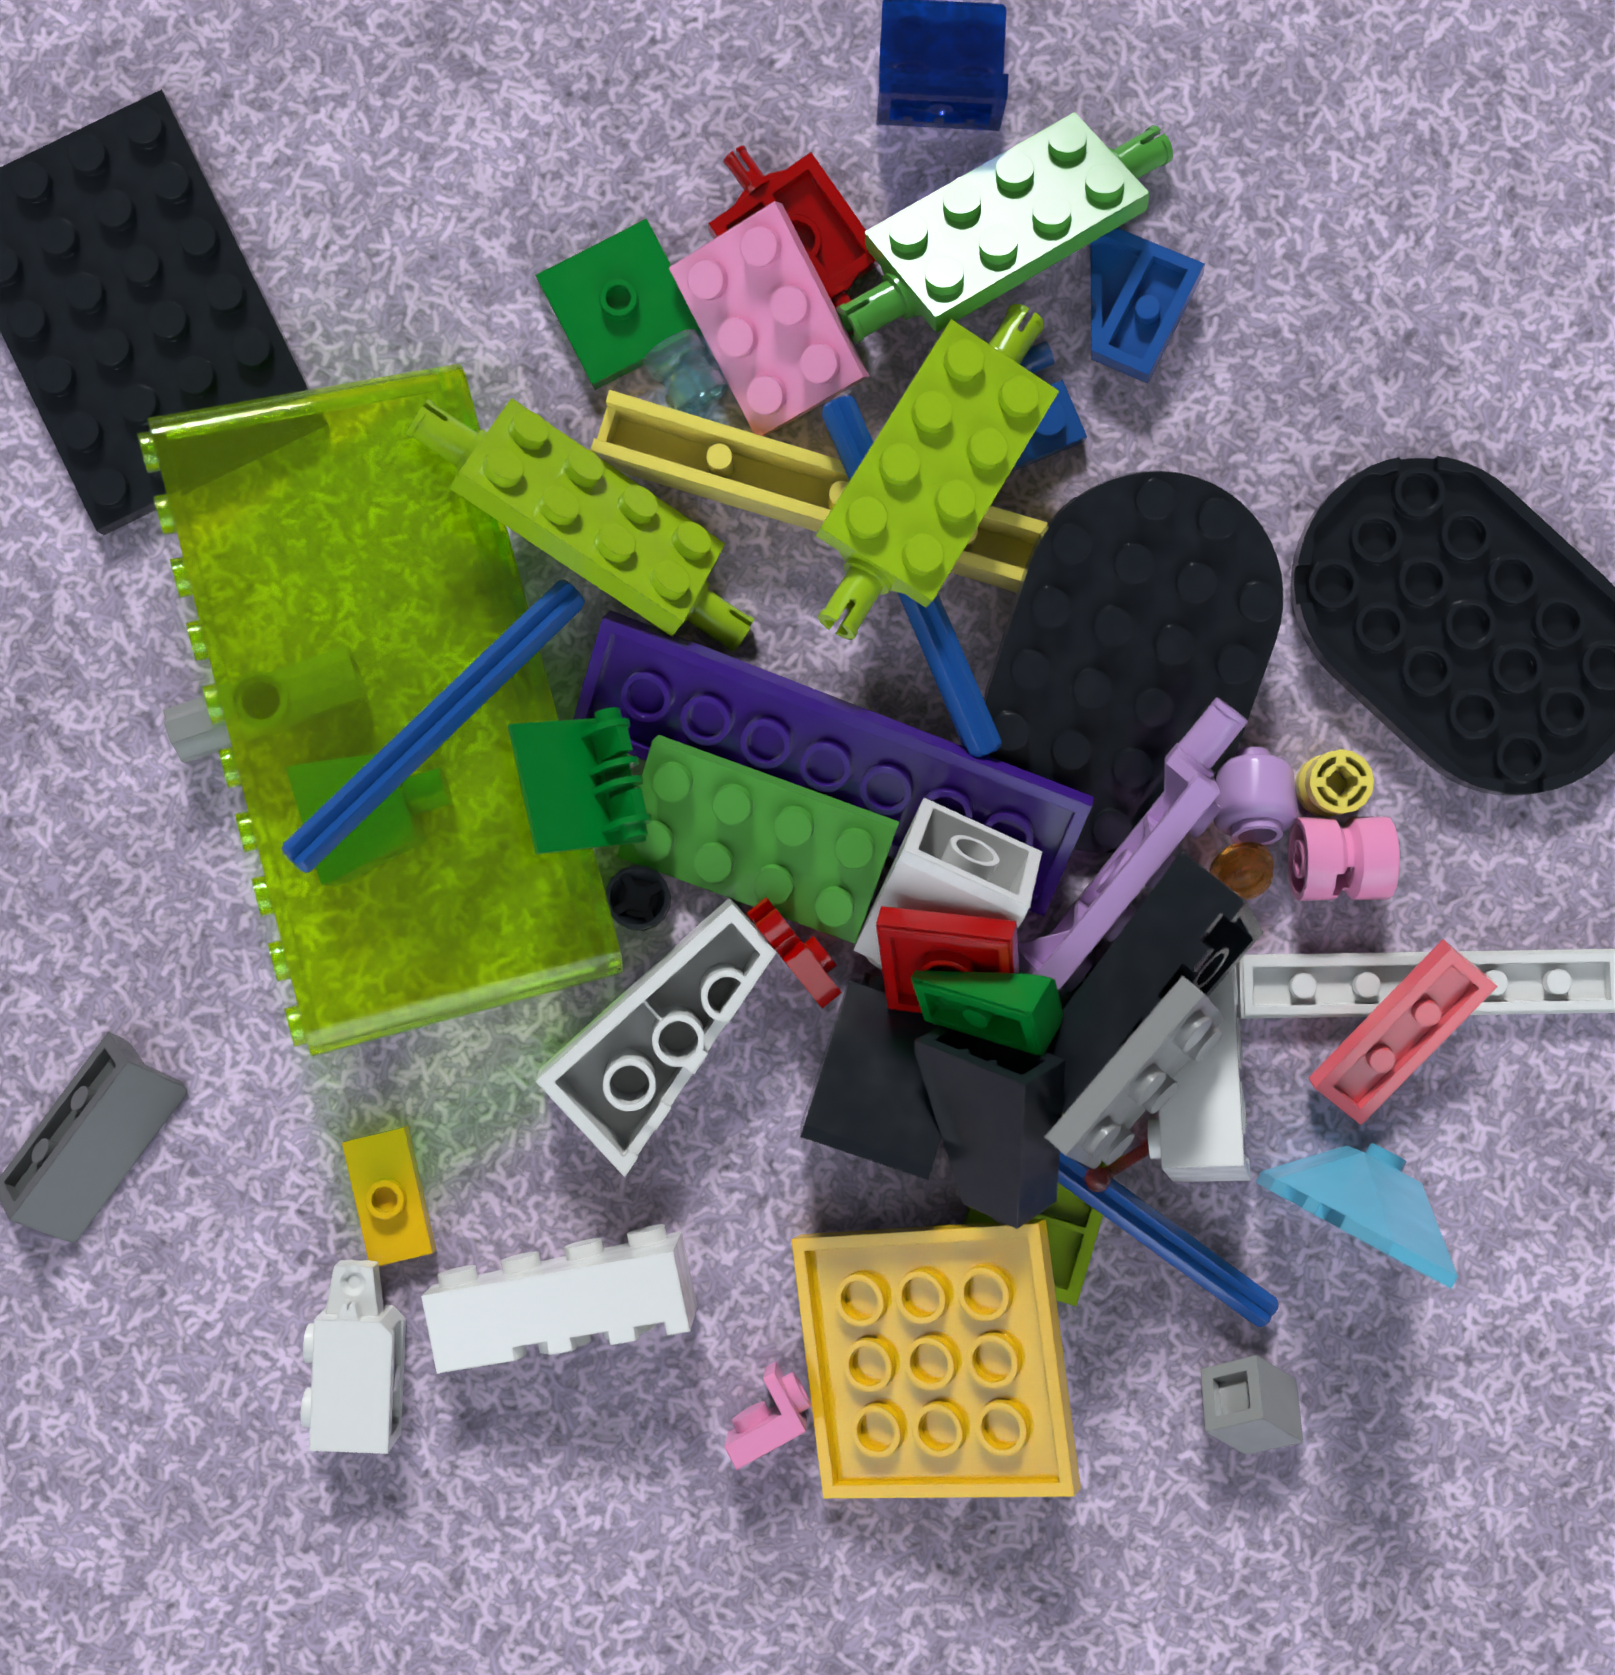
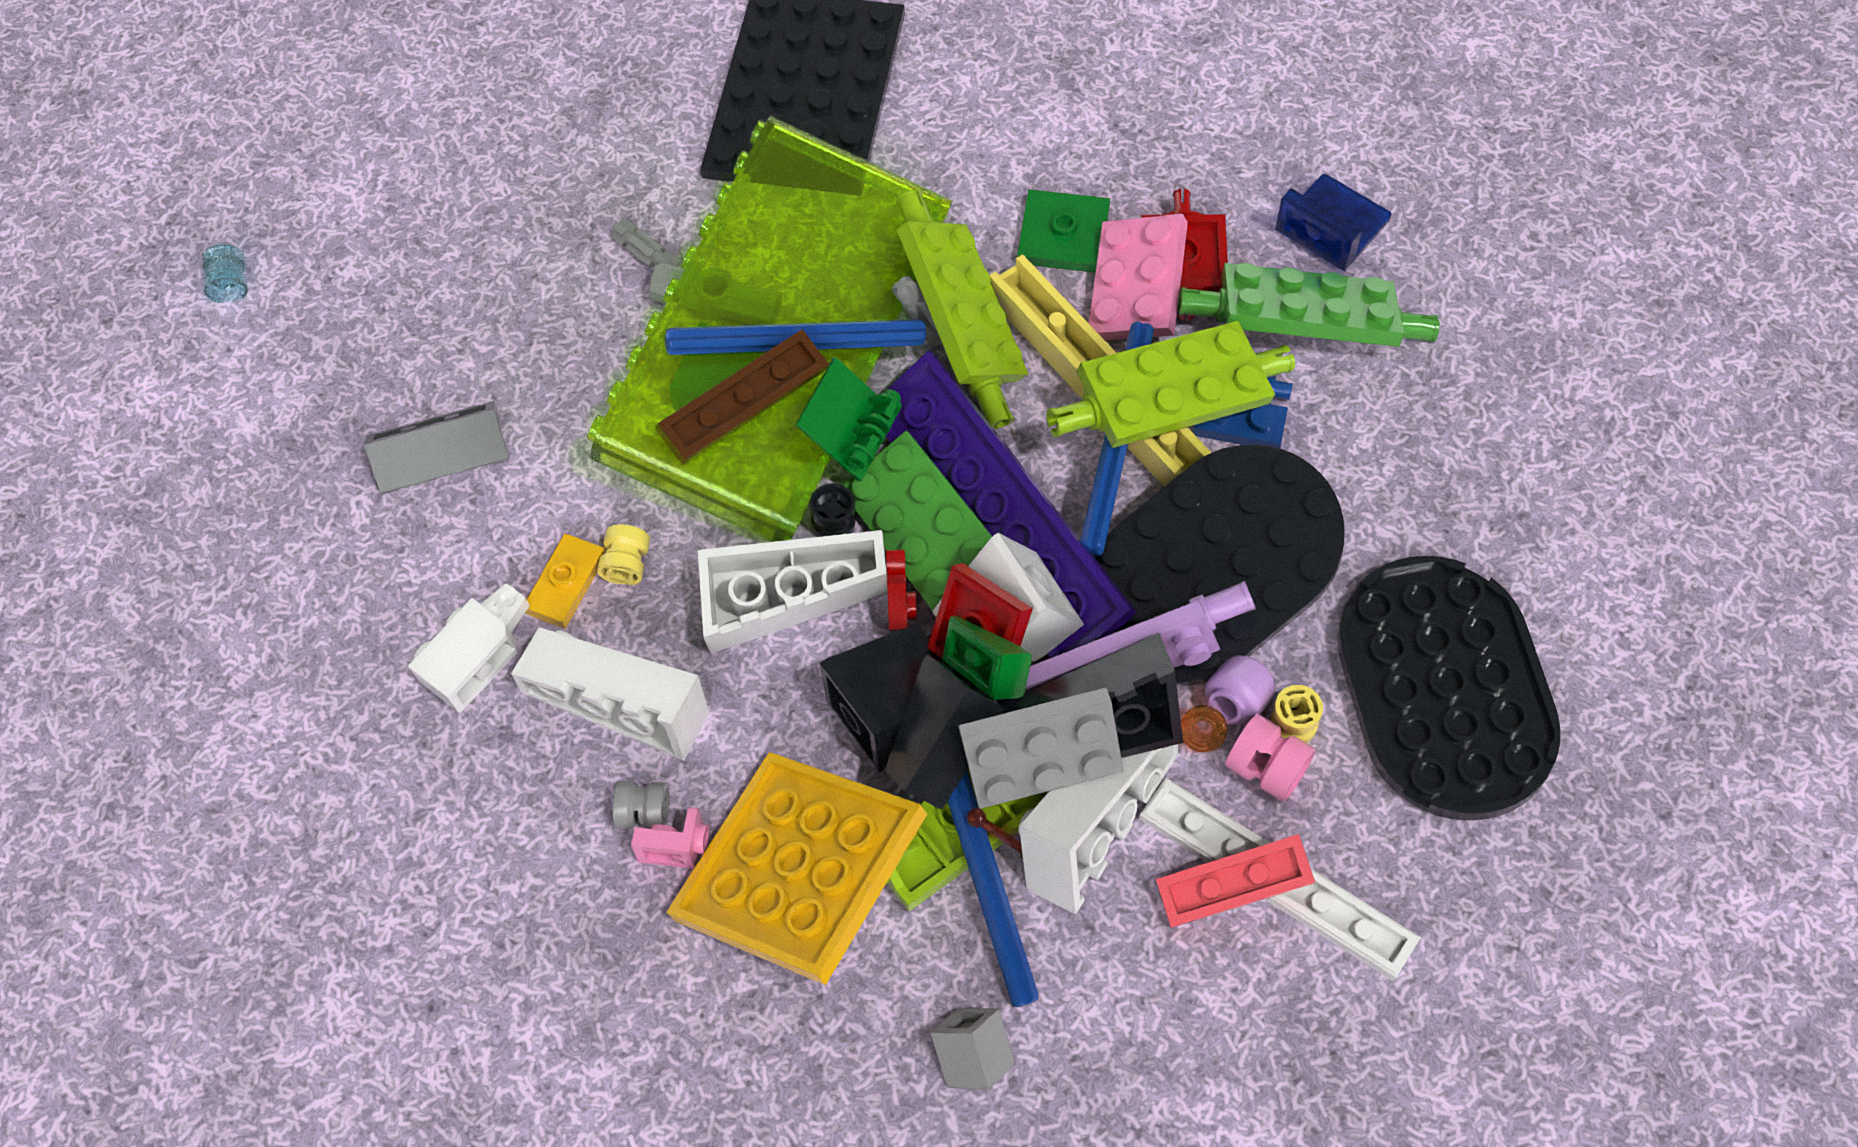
camera: 40 degrees right, 25 degrees down
(117, 691) = (642, 245): none -> light grey axle
(437, 1125) = (624, 554): none -> light yellow wheel
(444, 864) = (741, 397): none -> reddish brown plate
(525, 558) = (914, 303): none -> light grey axle
(685, 373) = (1072, 276): clear light blue wheel -> none
(705, 1399) = (640, 804): none -> light grey wheel
(1137, 300) = (1363, 394): blue wing -> none
(1369, 1201) = (1131, 952): medium azure wedge -> none

